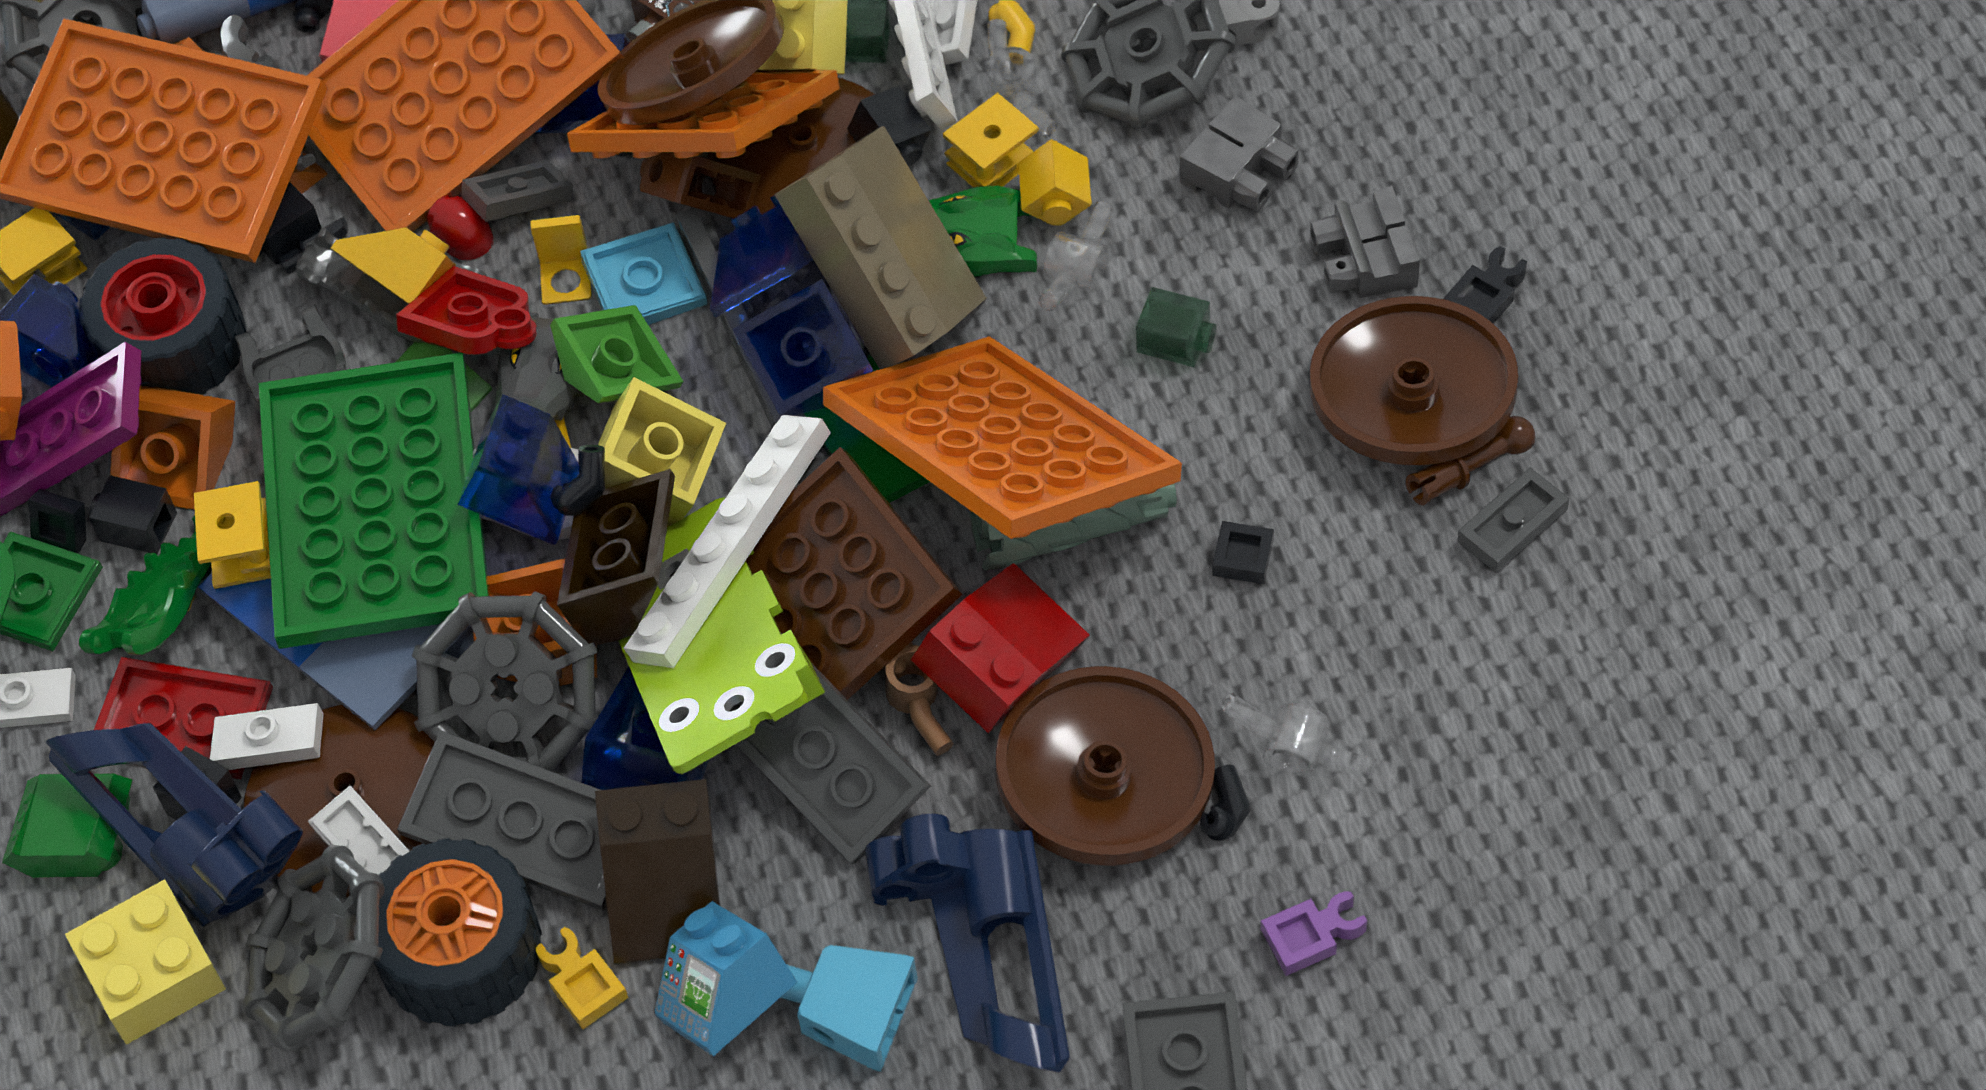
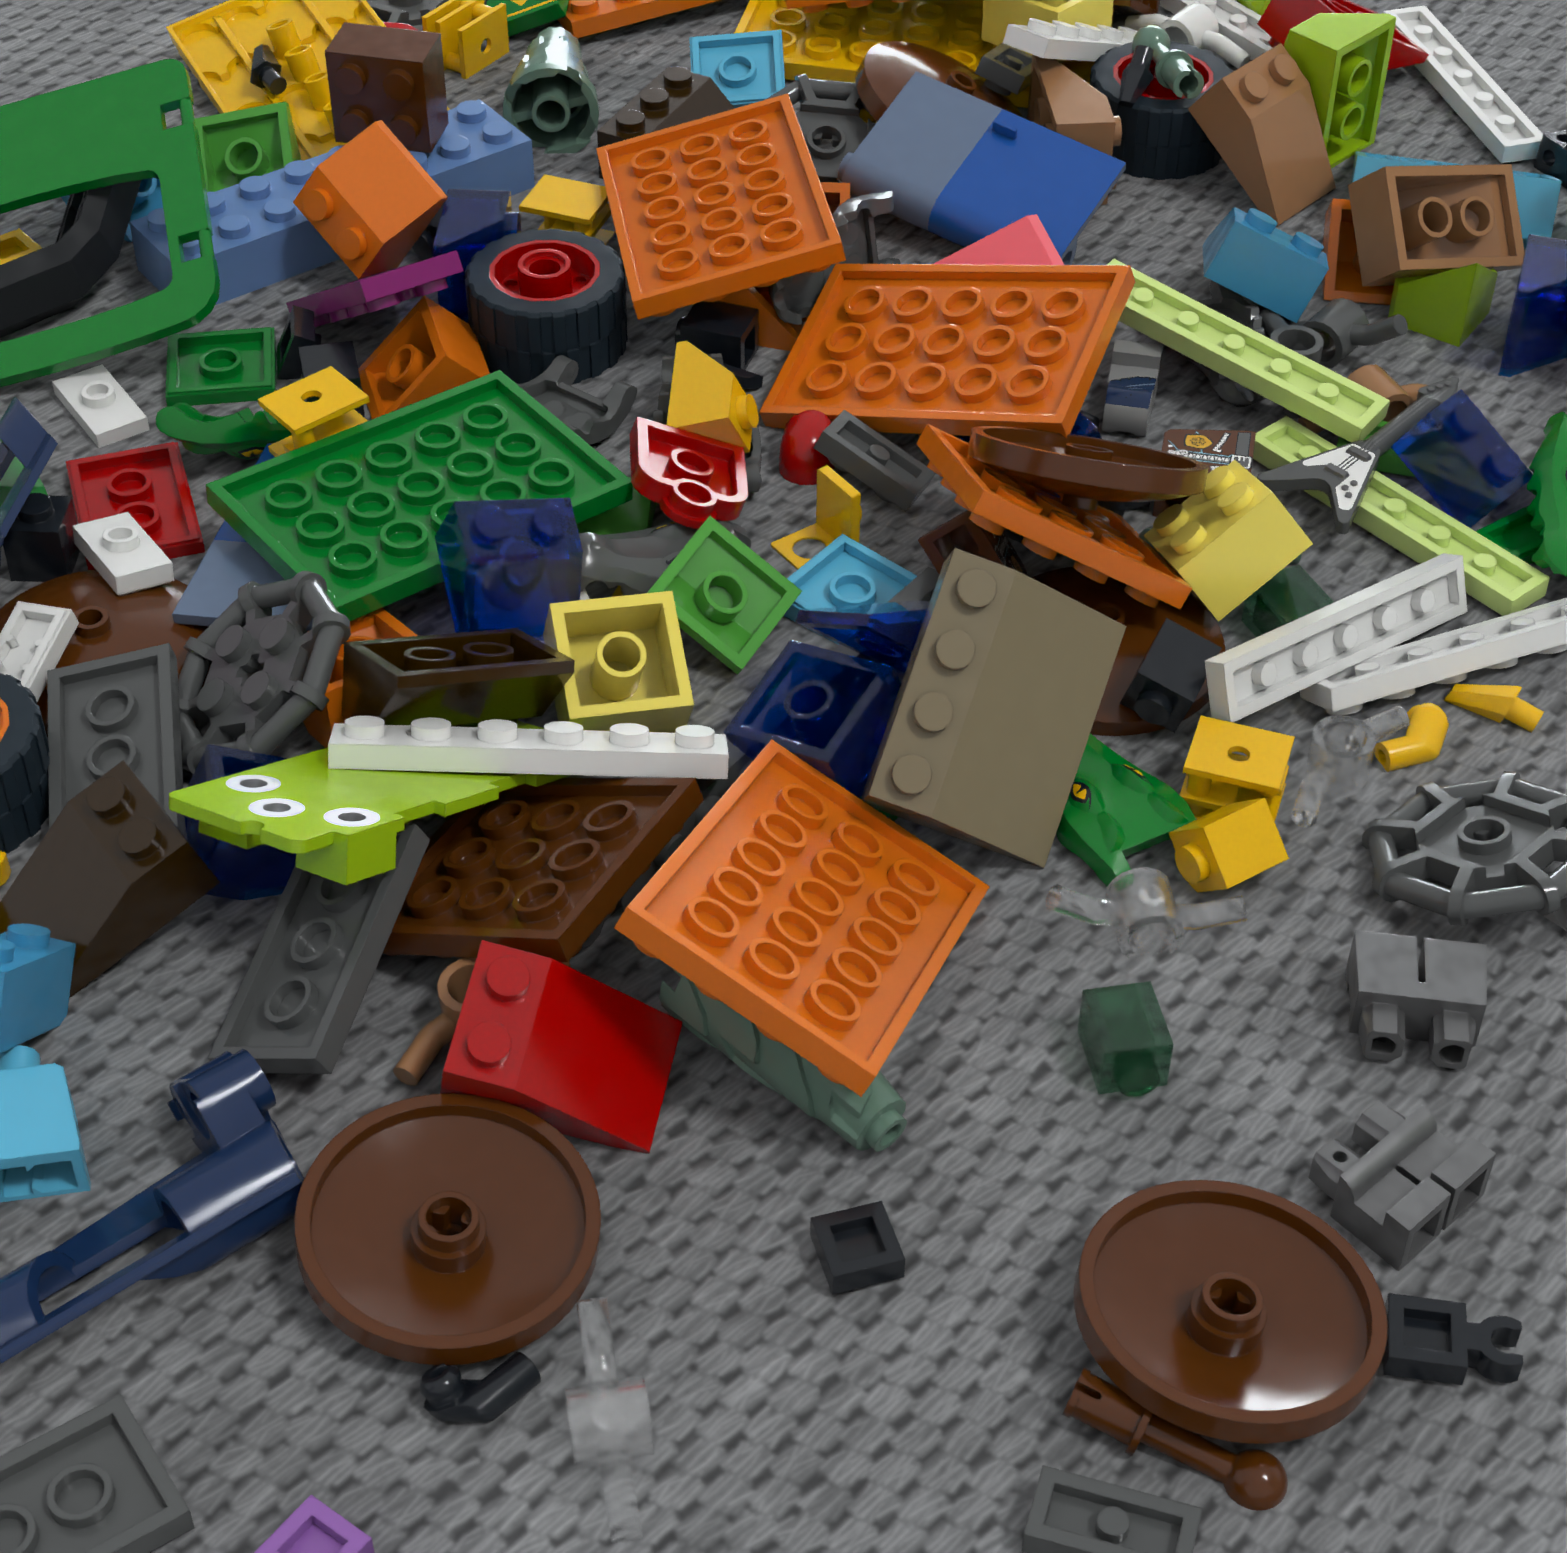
camera: 55 degrees right, 15 degrees down
(586, 487) = (518, 613): black arm -> none

